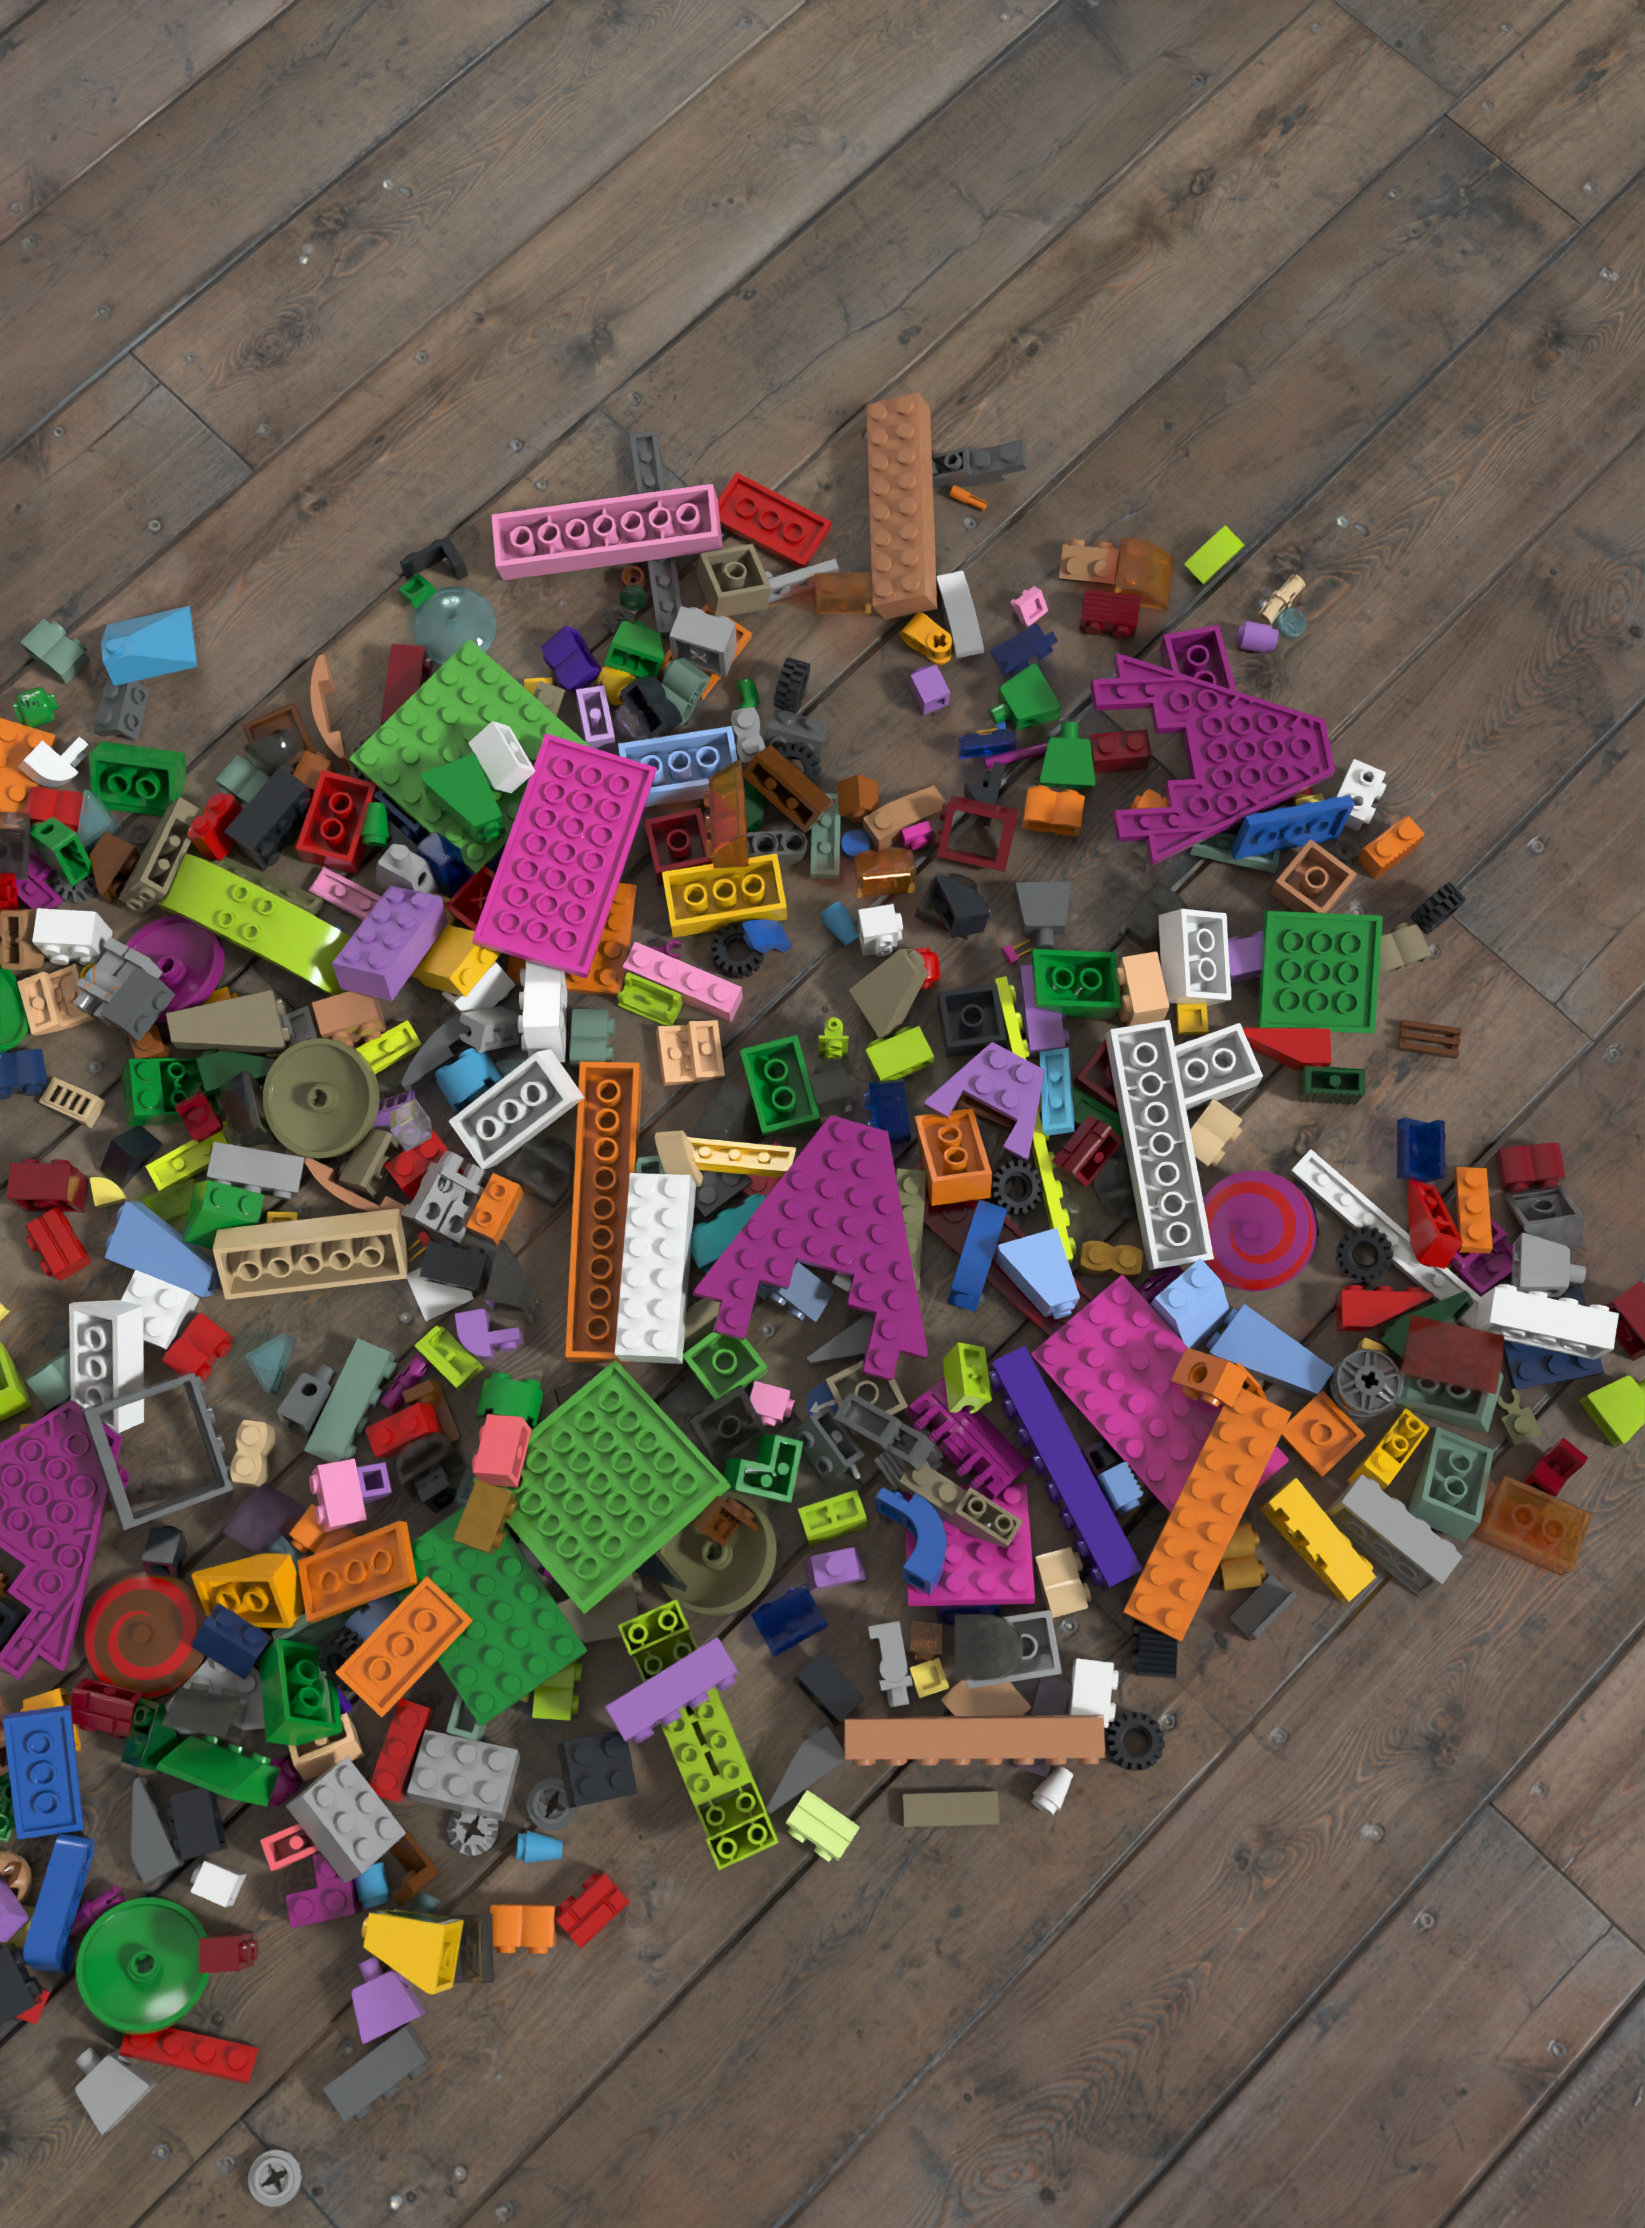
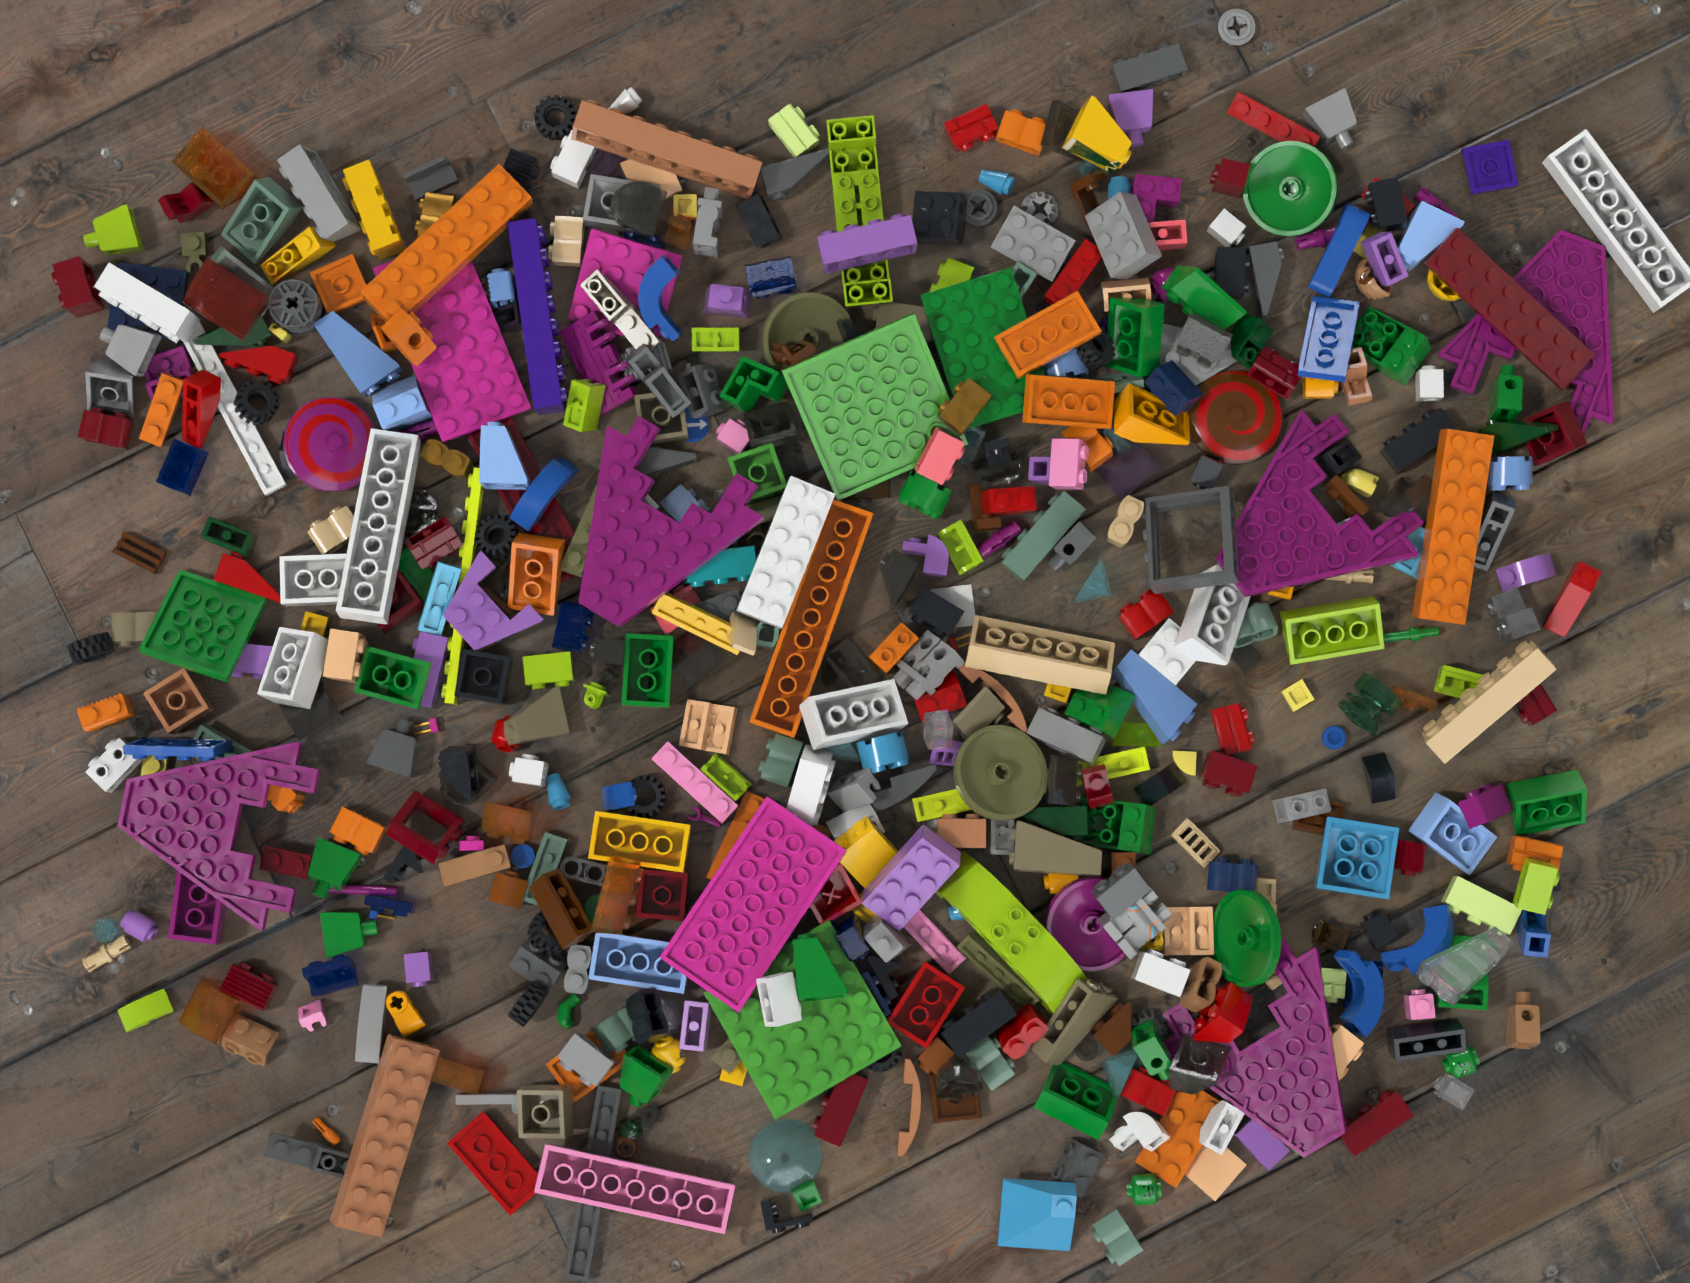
camera: 160 degrees left, 10 degrees up
(375, 825) = (896, 986): green cone -> none
(570, 659) = (699, 1087): dark purple brick -> none
(950, 1809) = (700, 115): dark tan tile -> none

